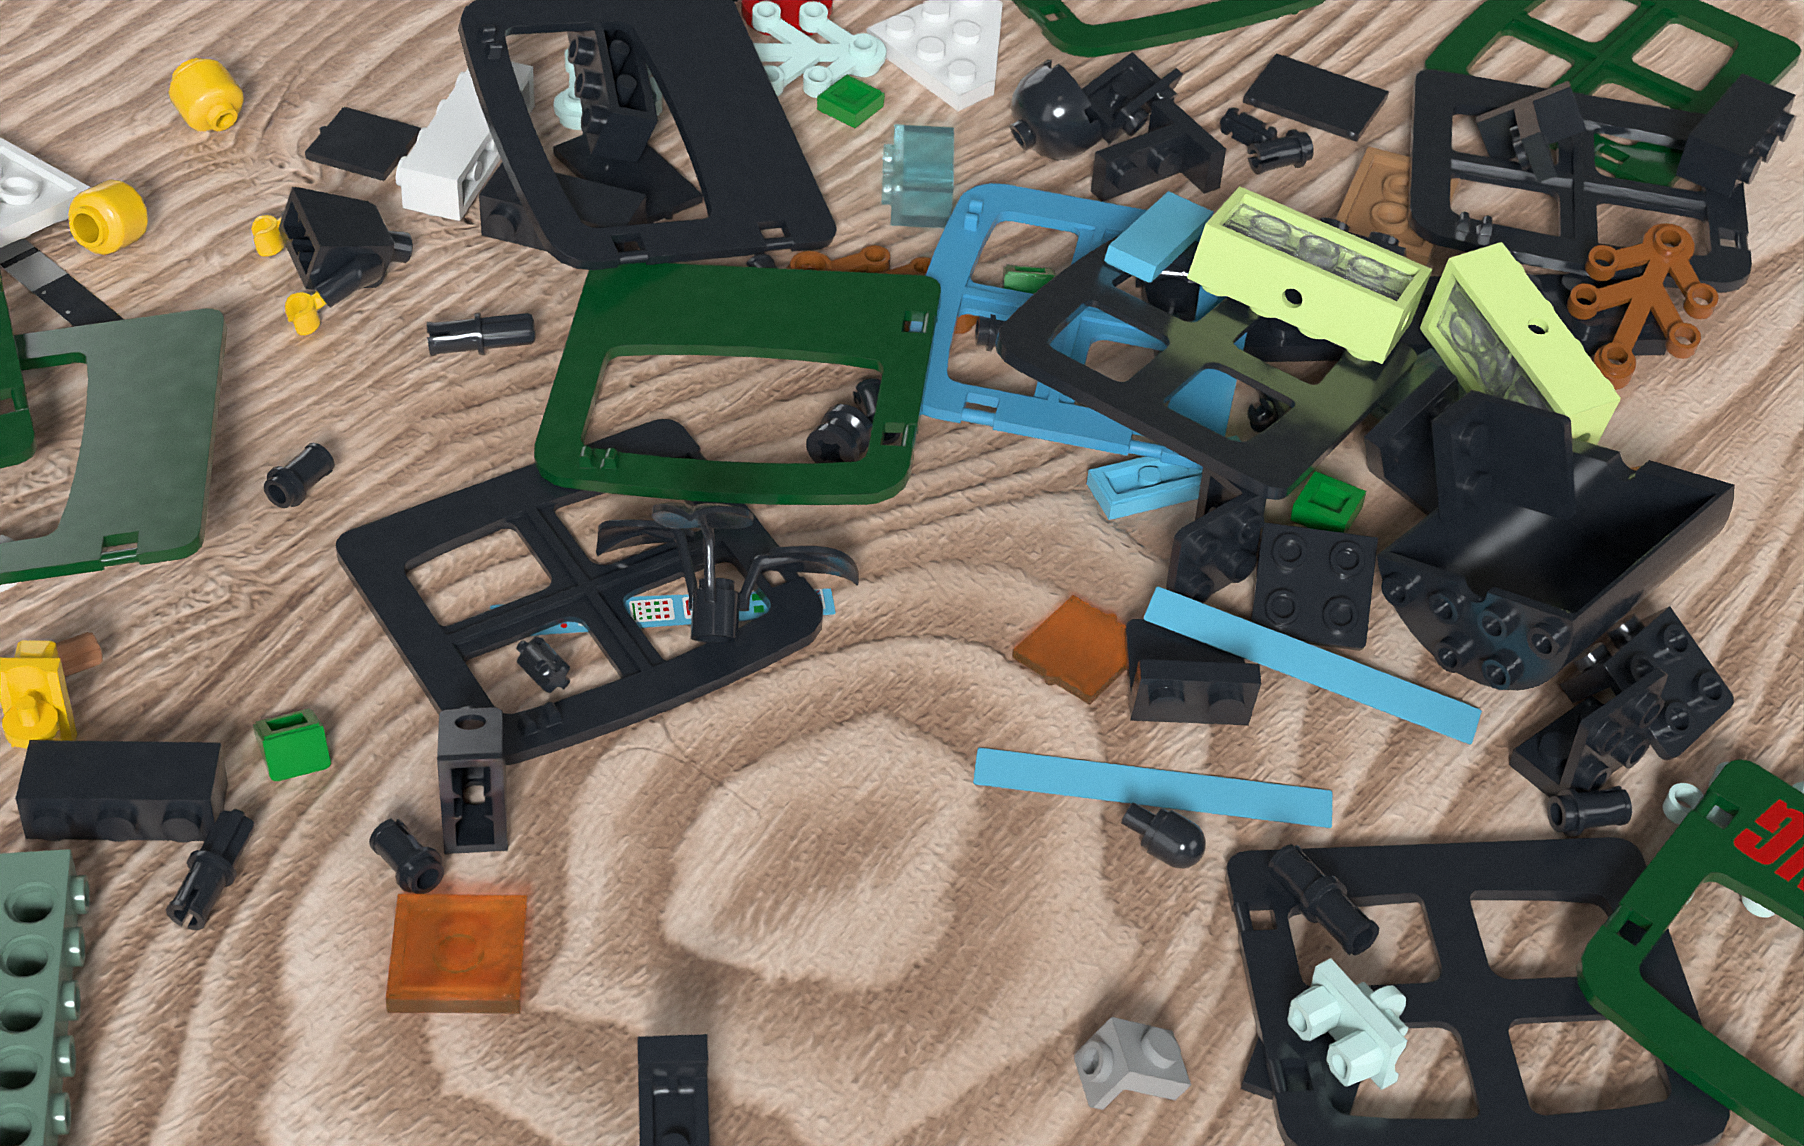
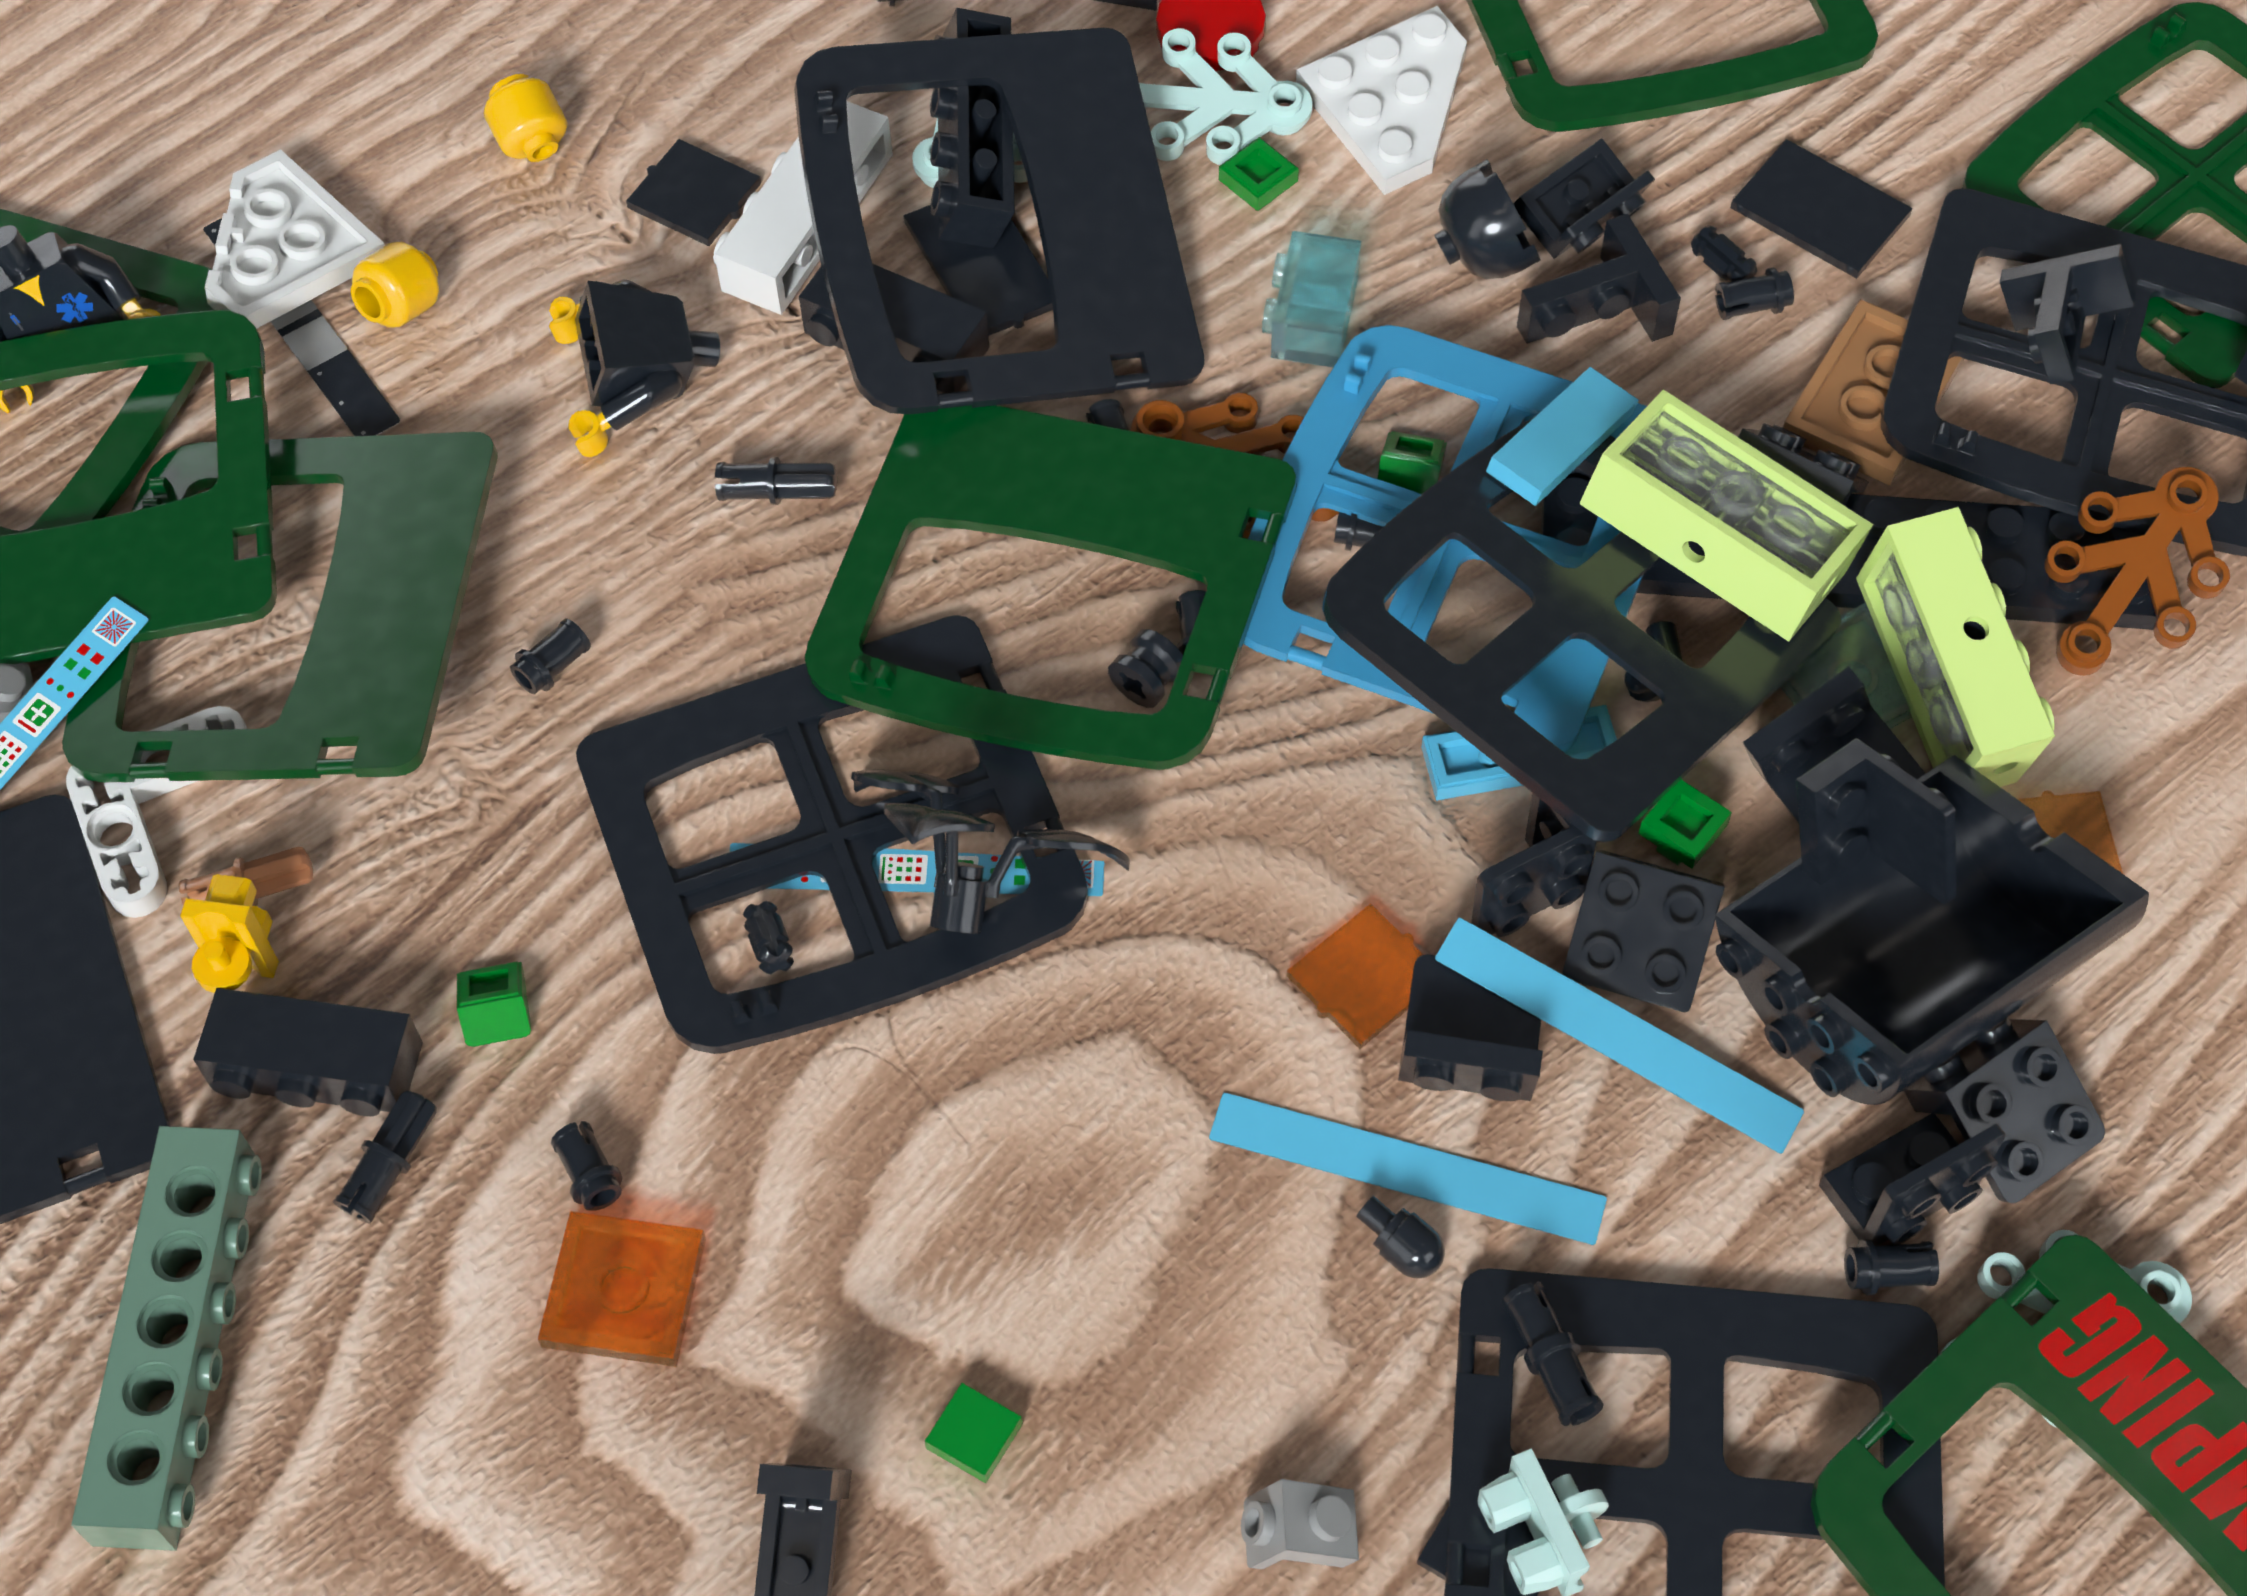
camera: 15 degrees right, 15 degrees up
(471, 755) = (665, 1058): black torso -> none
(814, 1029) = (973, 1432): none -> green tile

